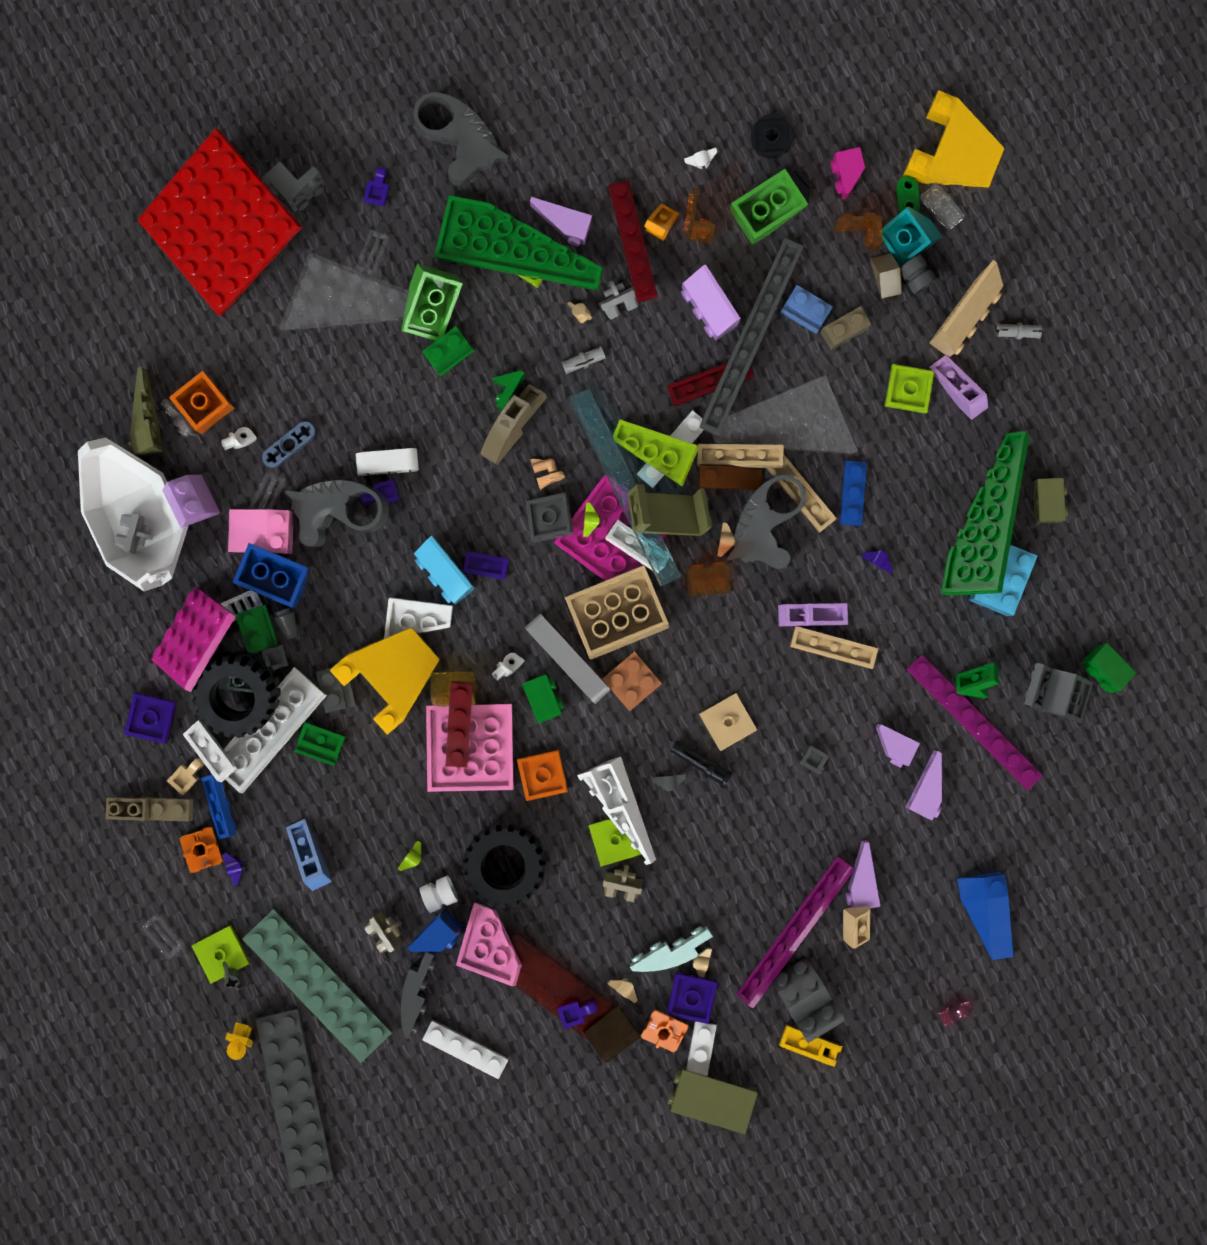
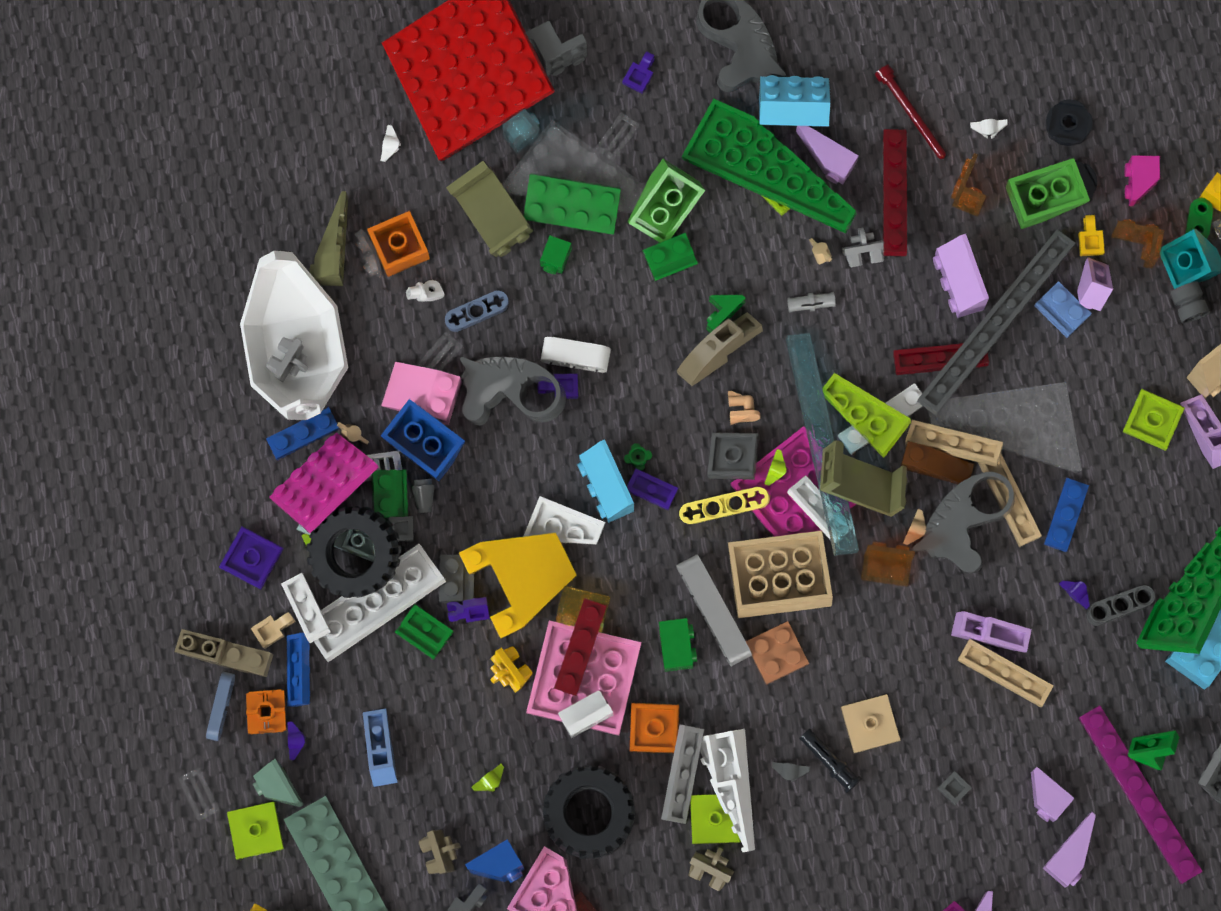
camera: 20 degrees right, 10 degrees down
(159, 858) = (221, 701): none -> sand blue beam
(165, 595) = (302, 434): none -> blue plate
(170, 311) = (390, 144): none -> white piece
(190, 499) = (357, 340): lavender slope -> none
(208, 584) = (351, 433): none -> tan piece
(229, 912) = (276, 785): none -> sand green slope
(231, 977) = (260, 857): dark grey piece -> none
(276, 348) = (490, 209): none -> olive panel
(283, 269) = (521, 130): none -> clear light blue brick
(345, 376) = (555, 255): none -> green brick
(347, 325) = (572, 203): none -> green plate
(356, 714) = (473, 610): none -> dark purple plate
(411, 762) = (506, 671): none -> yellow hips
(438, 894) = (509, 825): white wheel -> none
(463, 533) = (636, 450): none -> green plate
(479, 780) = (585, 714): none -> white panel
(506, 669) = (645, 604): white piece -> none
(522, 179) = (794, 101): none -> medium azure brick
(554, 566) = (724, 504): none -> light yellow beam
(577, 810) = (682, 774): none -> light grey plate
(598, 135) = (886, 76): none -> dark red piece
(661, 221) = (929, 180): light orange slope -> none
(816, 240) = (1090, 240): none -> yellow plate
(830, 280) = (1094, 285): none -> lavender slope
(845, 328) = (1099, 338): dark tan brick -> none
(887, 275) = (1157, 296): dark tan slope -> none
(929, 560) = (1128, 597): none -> dark grey beam

